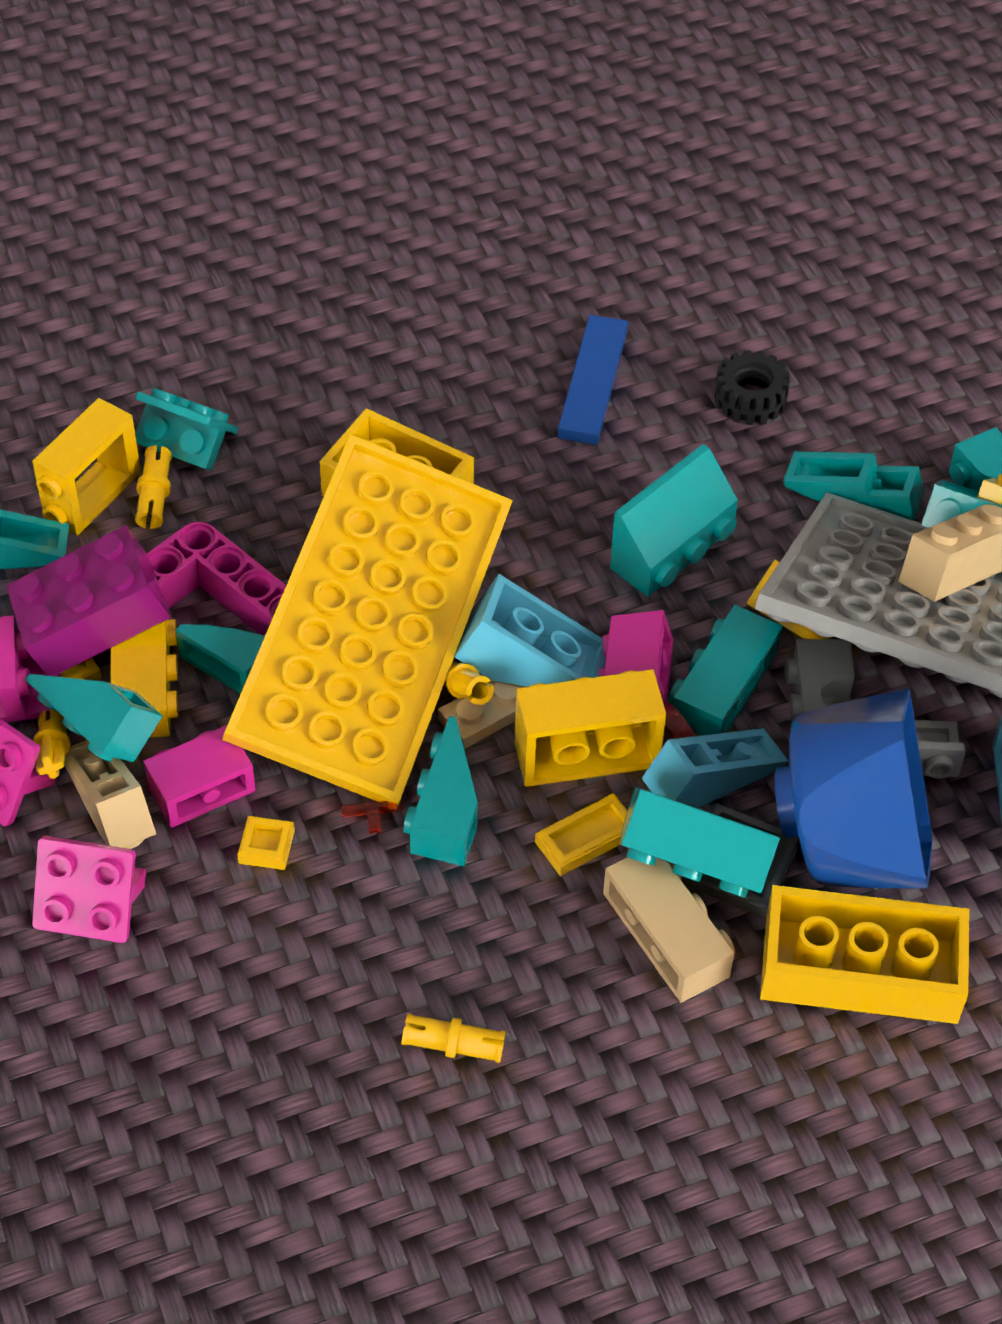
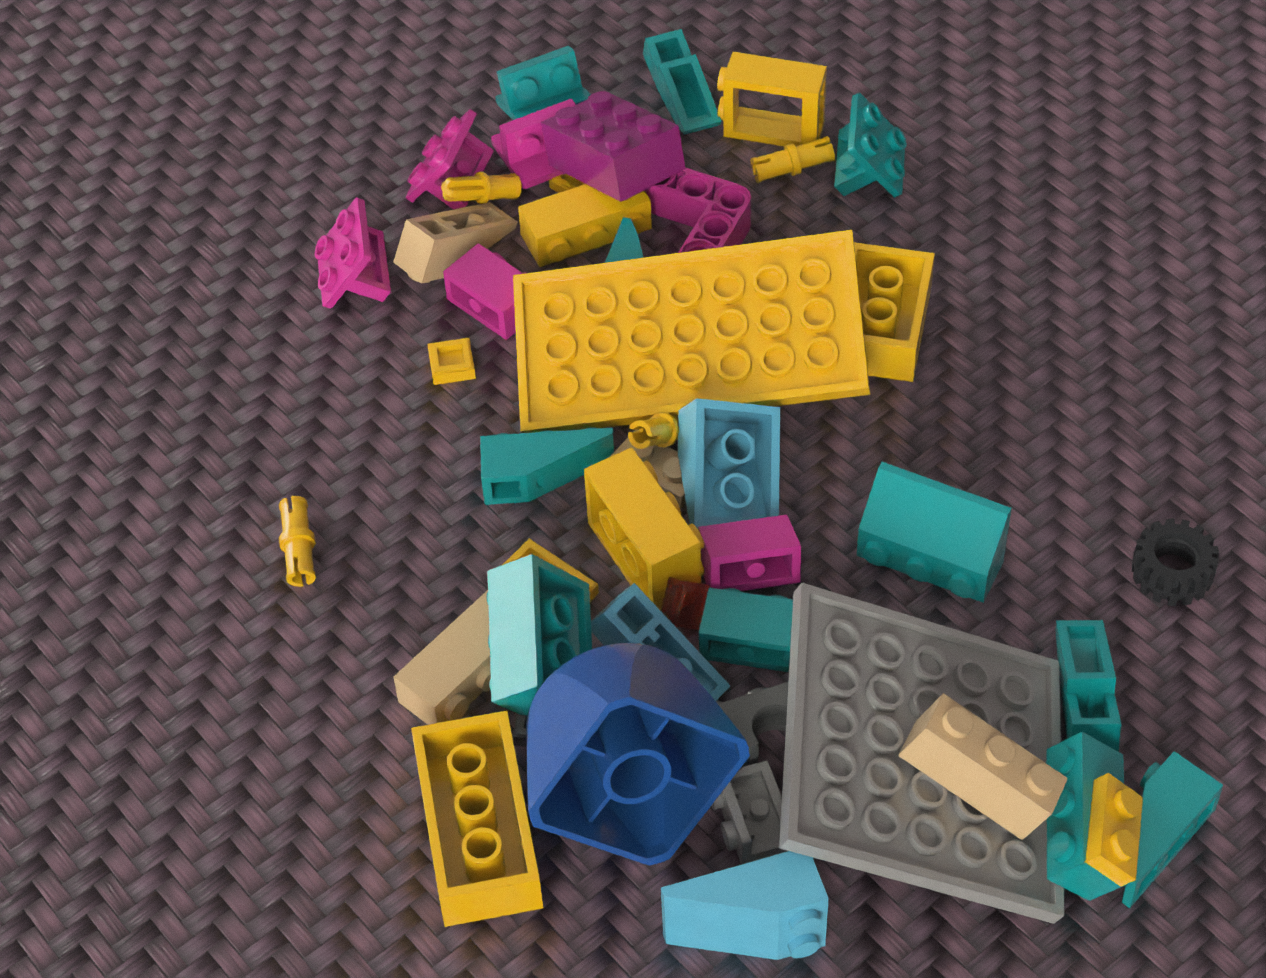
camera: 75 degrees right, 0 degrees up
(106, 714) = (503, 192): teal slope -> none
(372, 811) = (507, 422): clear red piece -> none
(593, 380) = (1114, 431): blue tile -> none

